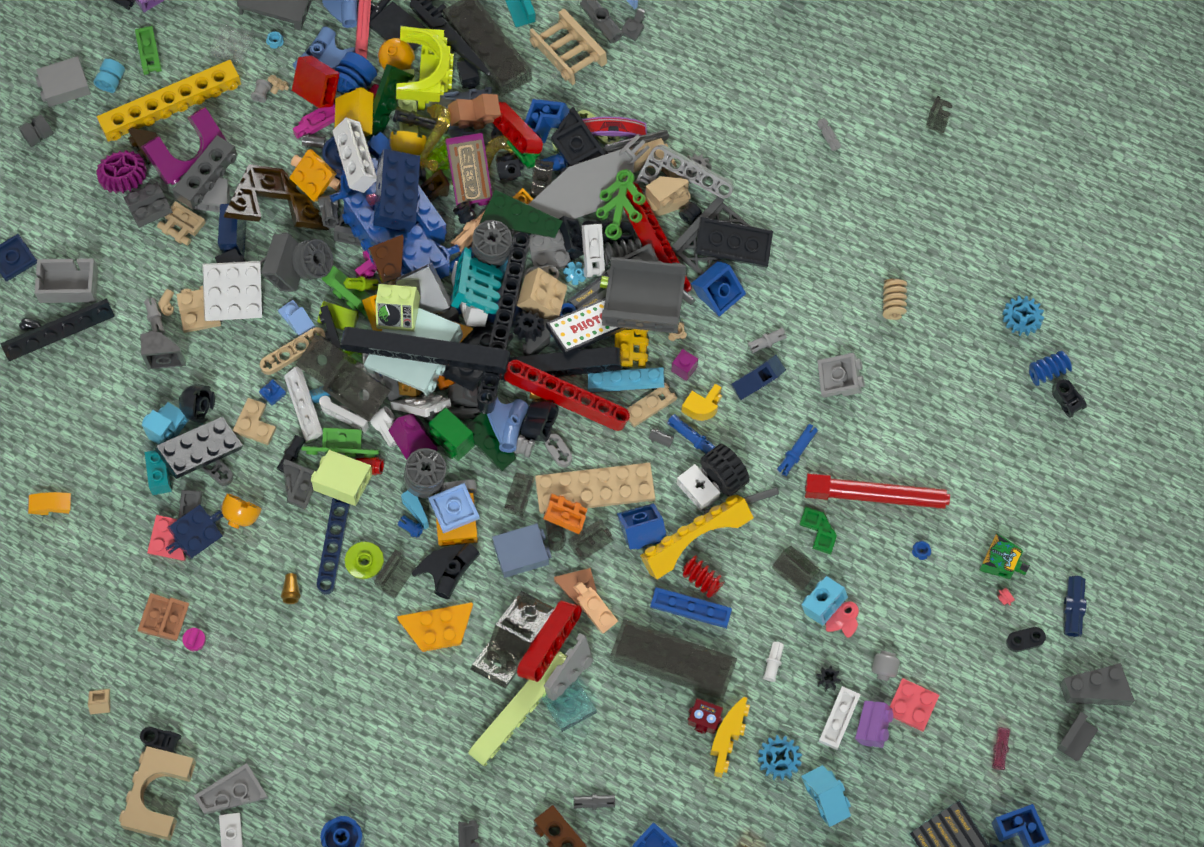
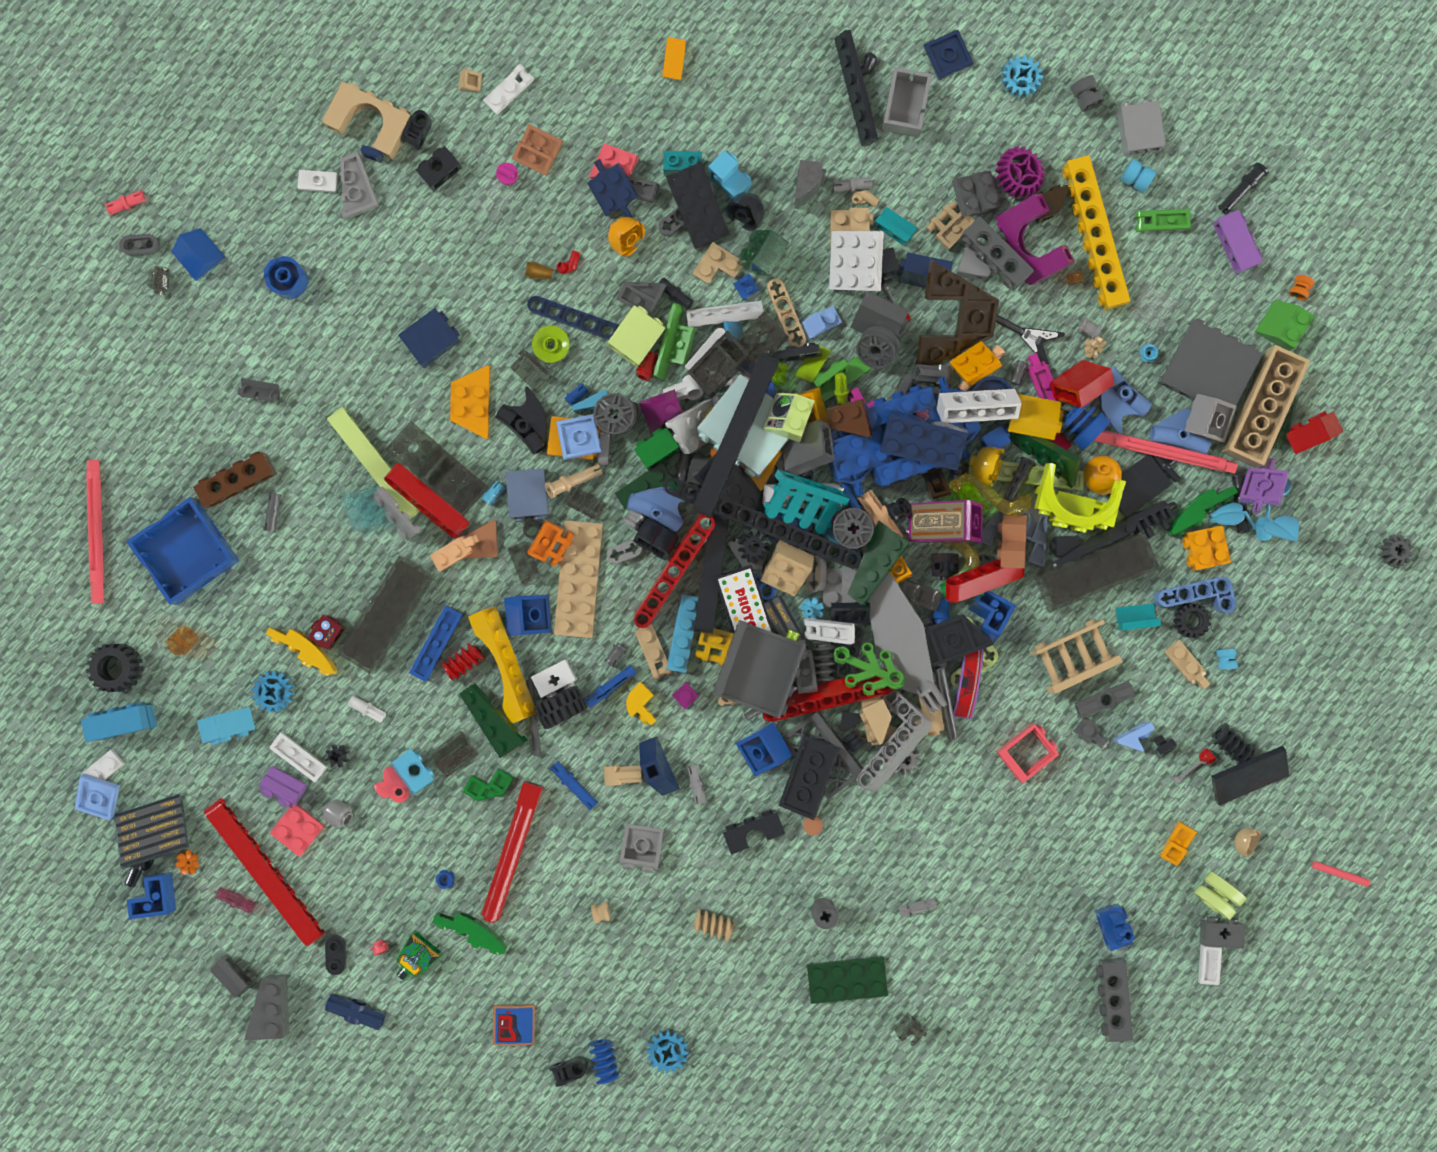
camera: 105 degrees right, 20 degrees up
(24, 196) = (1026, 83): none -> medium azure gear
(103, 660) = (508, 89): none -> white plate
(190, 271) = (895, 226): none -> teal panel
(190, 701) = (435, 179): none -> black brick
(193, 781) = (372, 154): none -> dark blue tile
(215, 110) = (1075, 278): none -> clear orange bush
(237, 376) = (762, 252): none -> clear green brick
(277, 136) = (1032, 337): none -> piece
(279, 561) = (569, 266): none -> red arm
(379, 679) = (430, 337): none -> dark blue brick
(503, 512) = (565, 483): none -> tan pin
(527, 585) = (493, 493): none -> medium azure pin
(670, 89) = (1049, 745): none -> coral window
(672, 223) = (849, 720): none -> black tile
(759, 532) = (491, 721): none -> dark green wing
(775, 409) = (622, 774): none -> tan piece
(779, 235) = (812, 827): none -> nougat tile
(805, 294) = (768, 823): none -> black arch
(856, 204) = (827, 921): none -> dark grey piece
(911, 180) = (847, 979): none -> dark green plate
(911, 399) = (600, 912): none -> tan wheel
(963, 726) = (262, 871): none -> red beam
(964, 508) = (479, 933): none -> green slope
(977, 806) = (187, 862): none -> orange plant
(1041, 457) = (513, 1024): none -> slope

